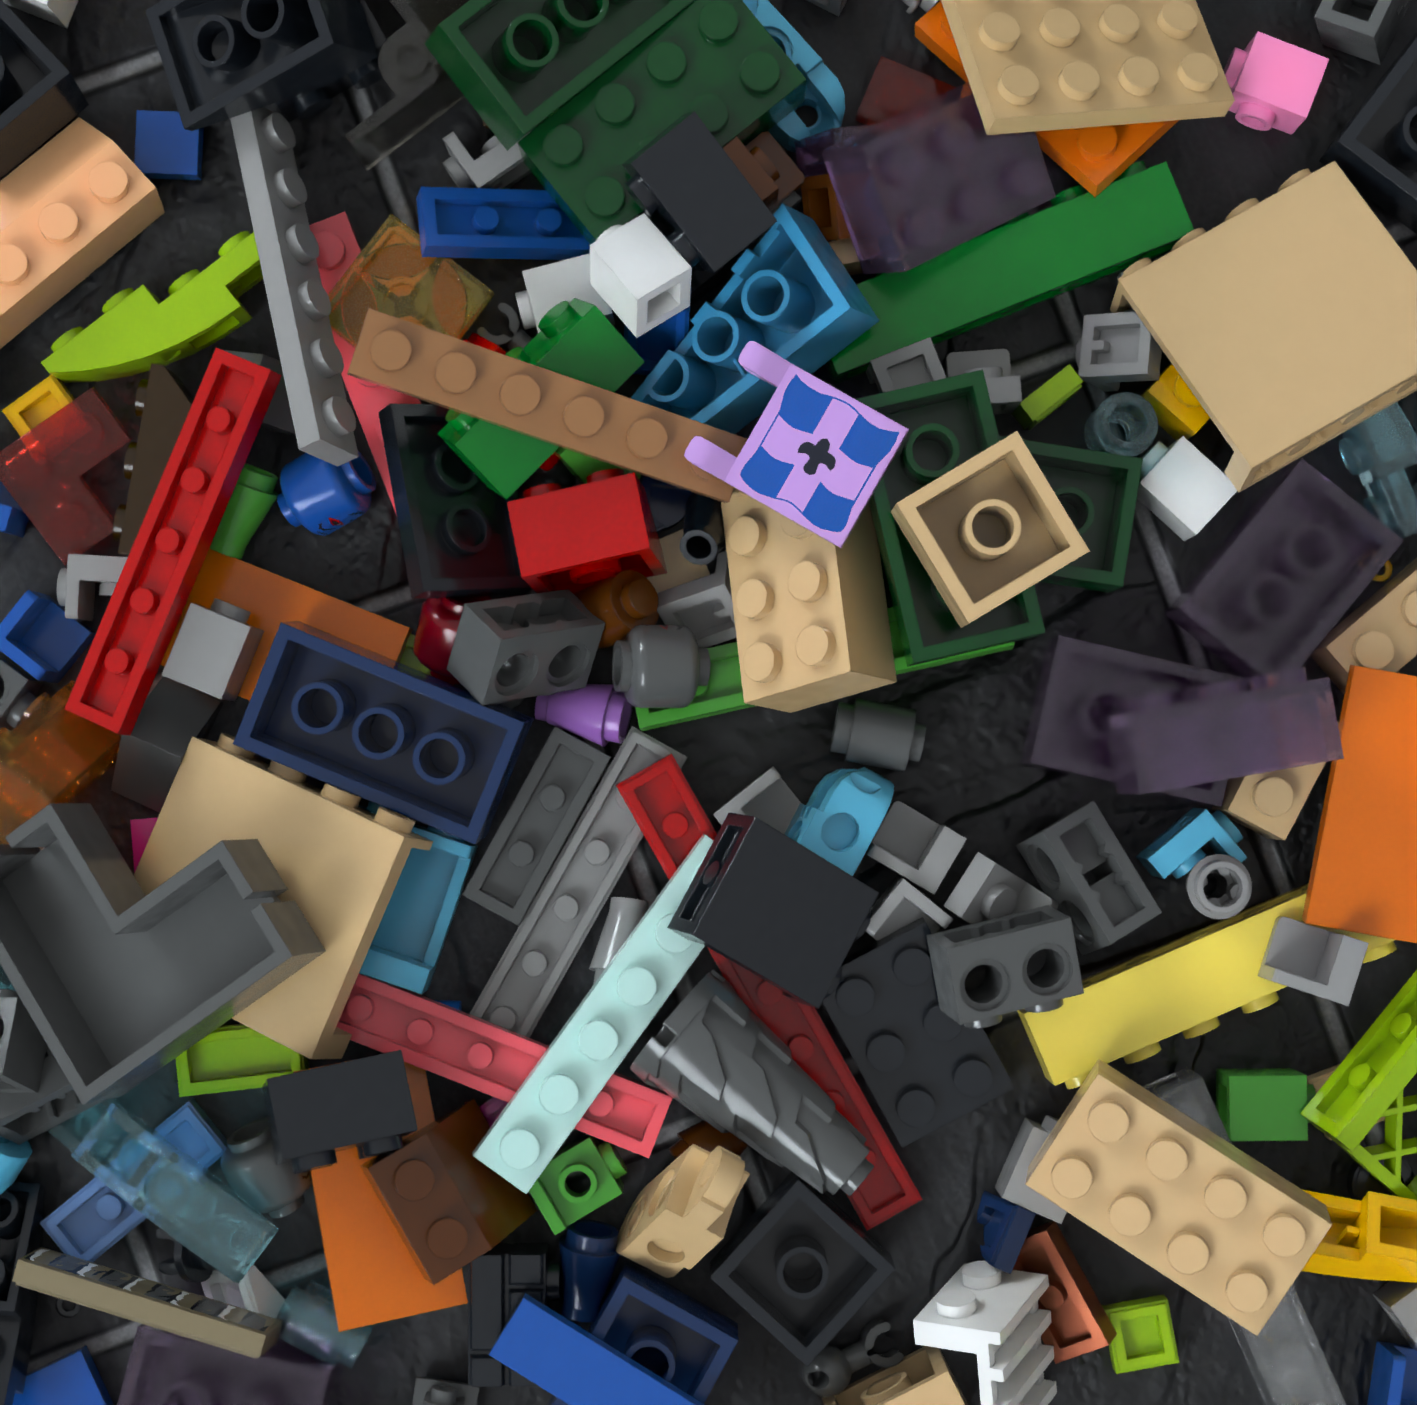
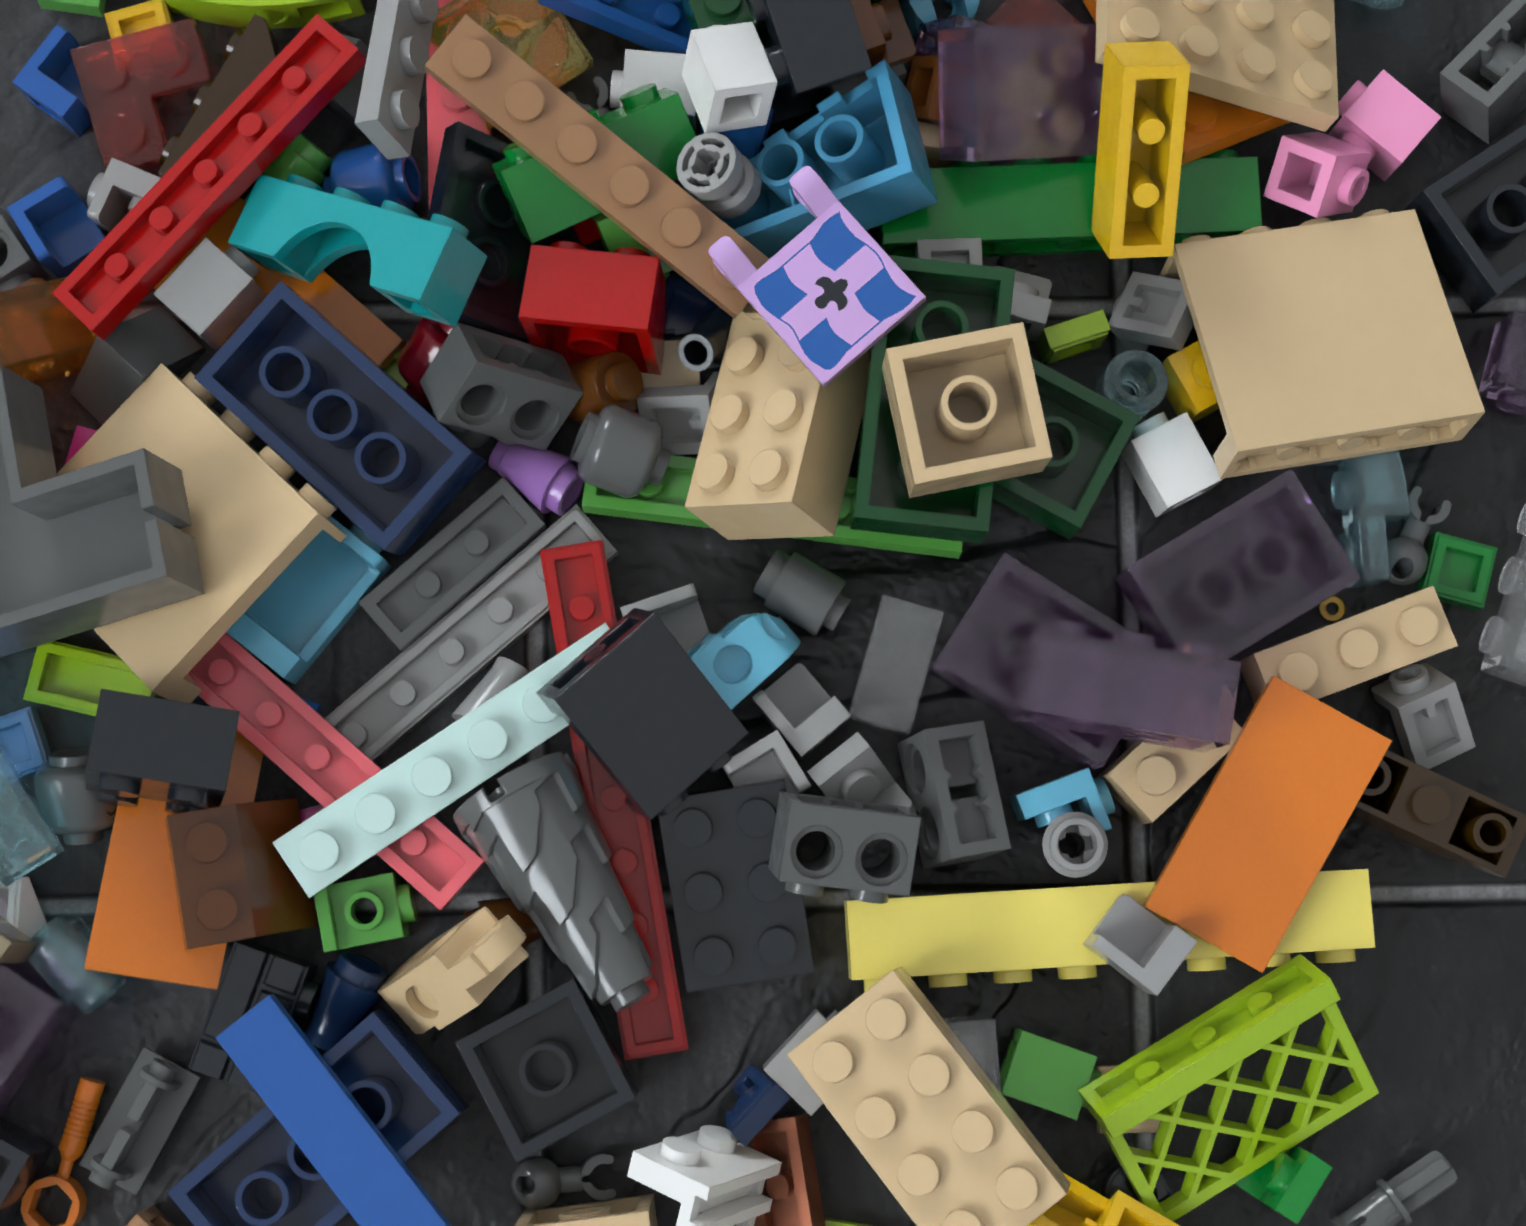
camera: 15 degrees right, 5 degrees down
(403, 563) = (414, 261): none -> teal arch
(678, 371) = (718, 175): none -> light grey wheel
(987, 771) = (895, 664): none -> clear tile
(1059, 205) = (1140, 148): none -> yellow brick
(1230, 158) = (1318, 174): none -> bright pink brick

